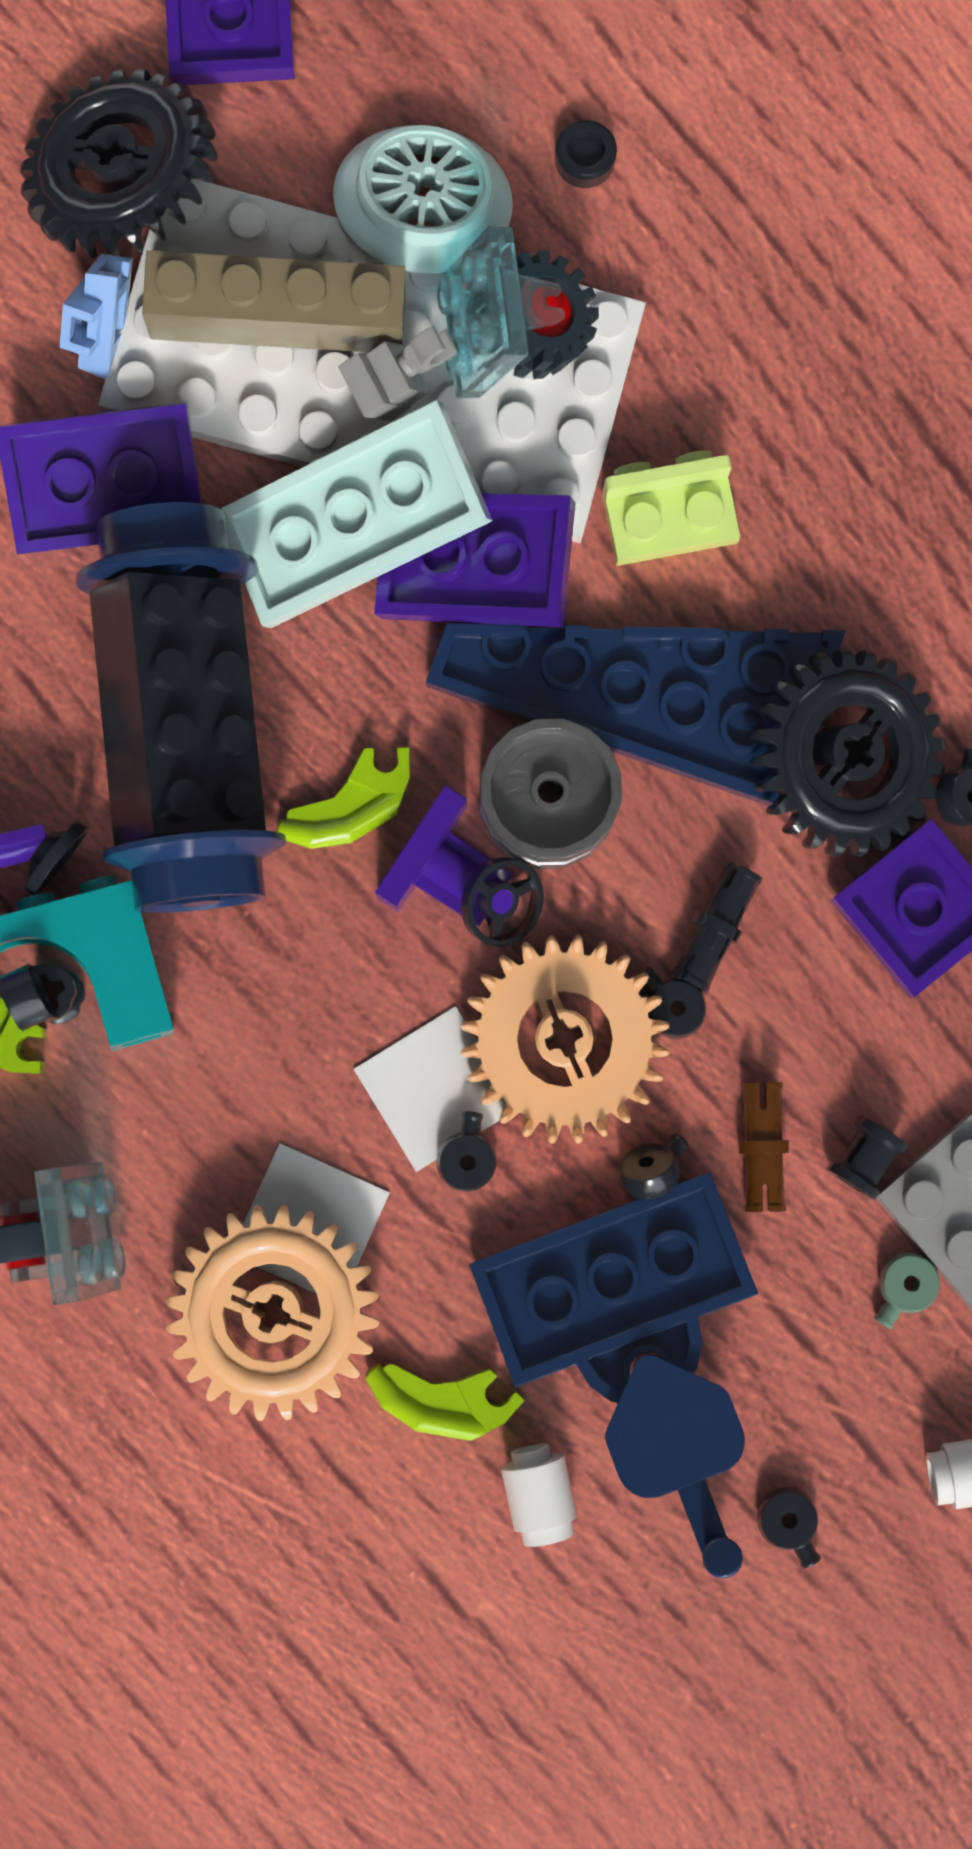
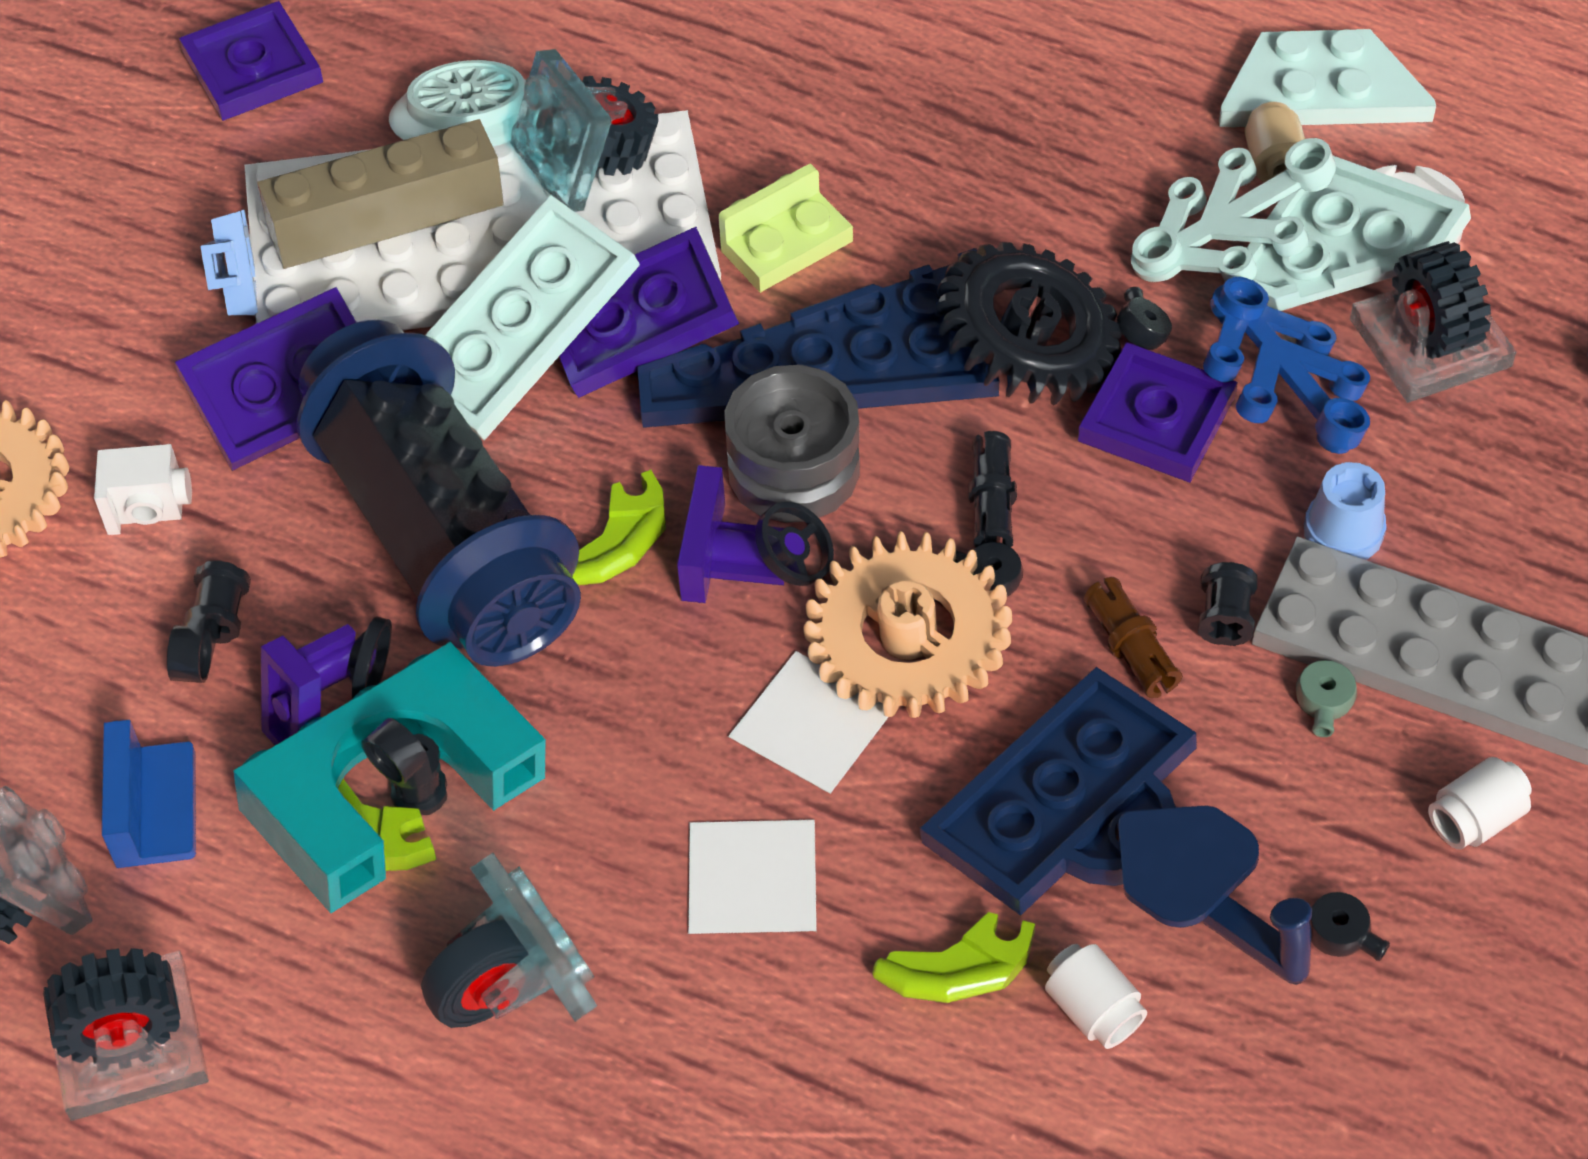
camera: 15 degrees left, 30 degrees down
(136, 179) = (207, 171): black gear -> none
(212, 1289) = (758, 988): light nougat gear -> none
(389, 376) = (502, 206): light grey piece -> none
(464, 1143) = (867, 744): black piece -> none
(585, 154) = (586, 45): black tile -> none
(652, 1168) = (1043, 690): black piece -> none

